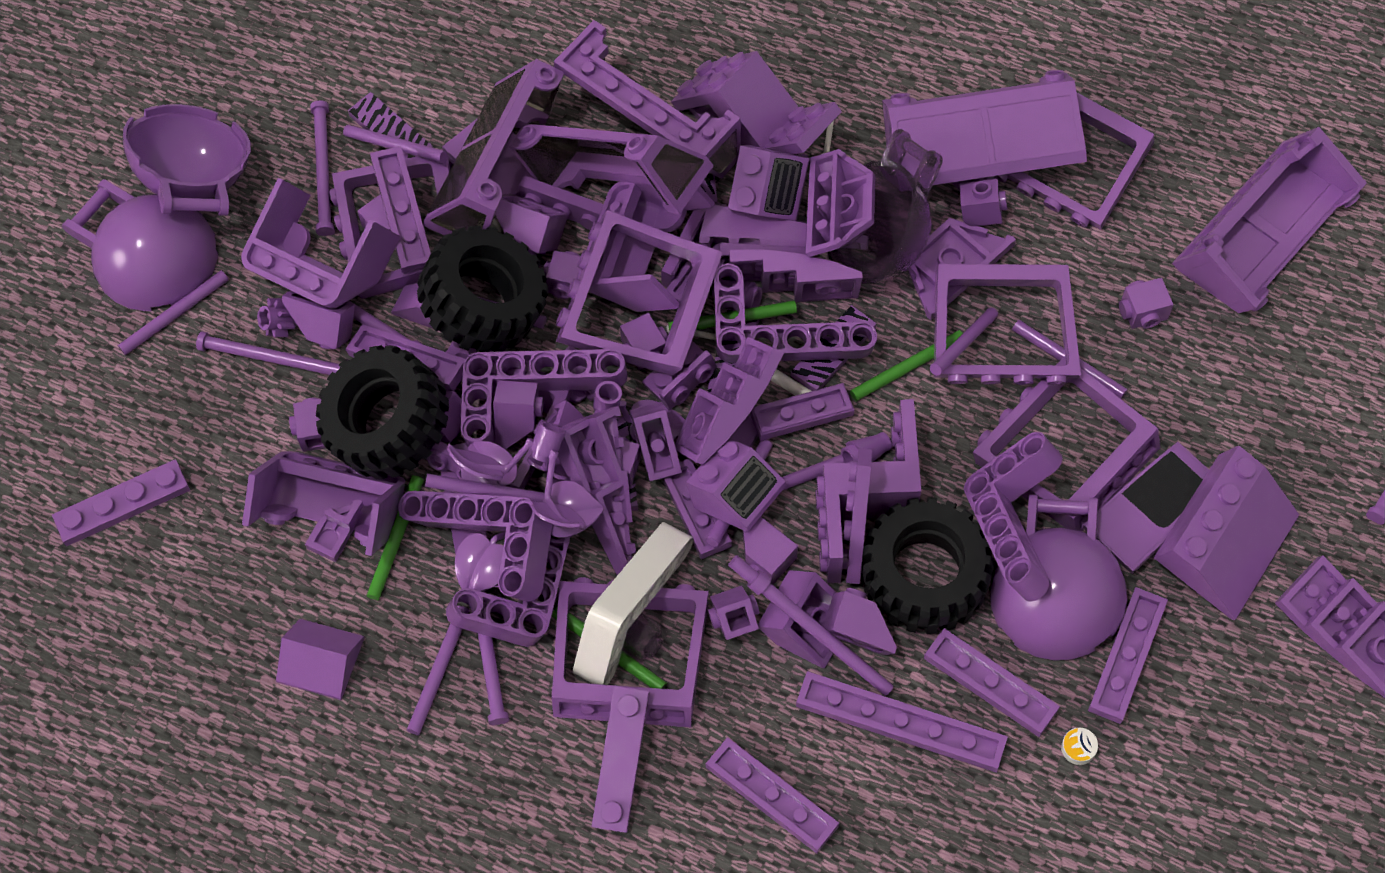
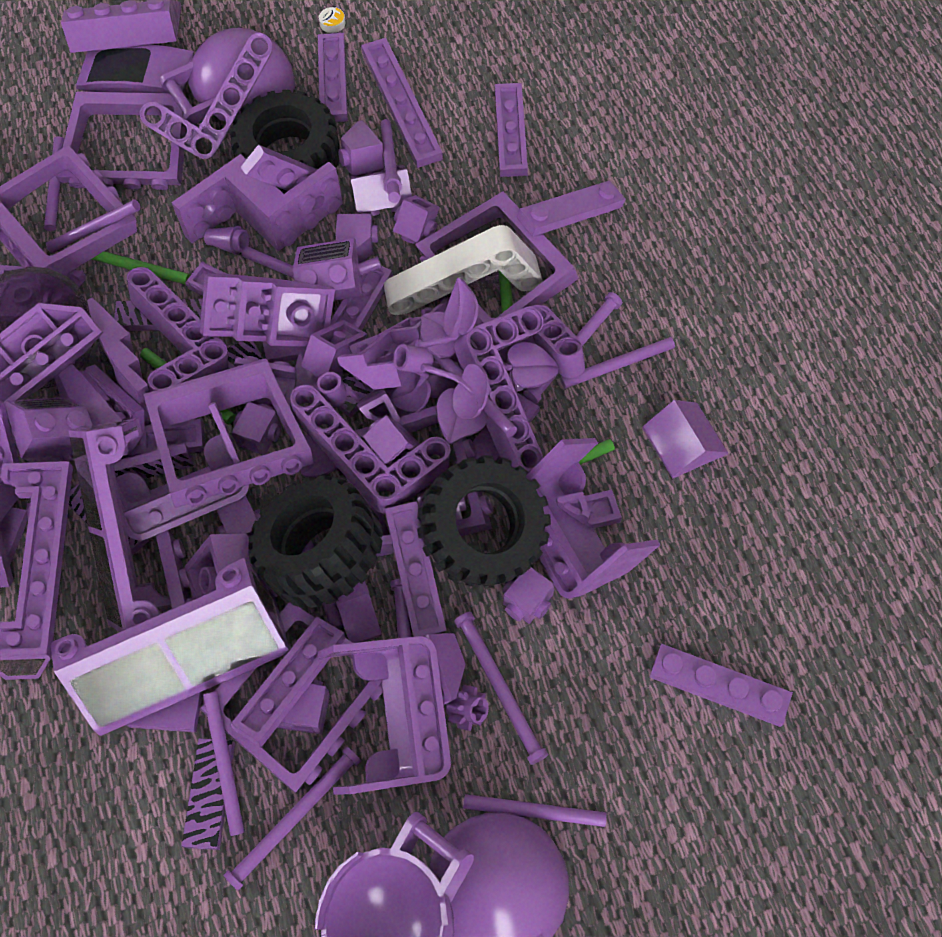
camera: 130 degrees left, 0 degrees up
(1127, 655) = (271, 23): medium lavender plate -> none

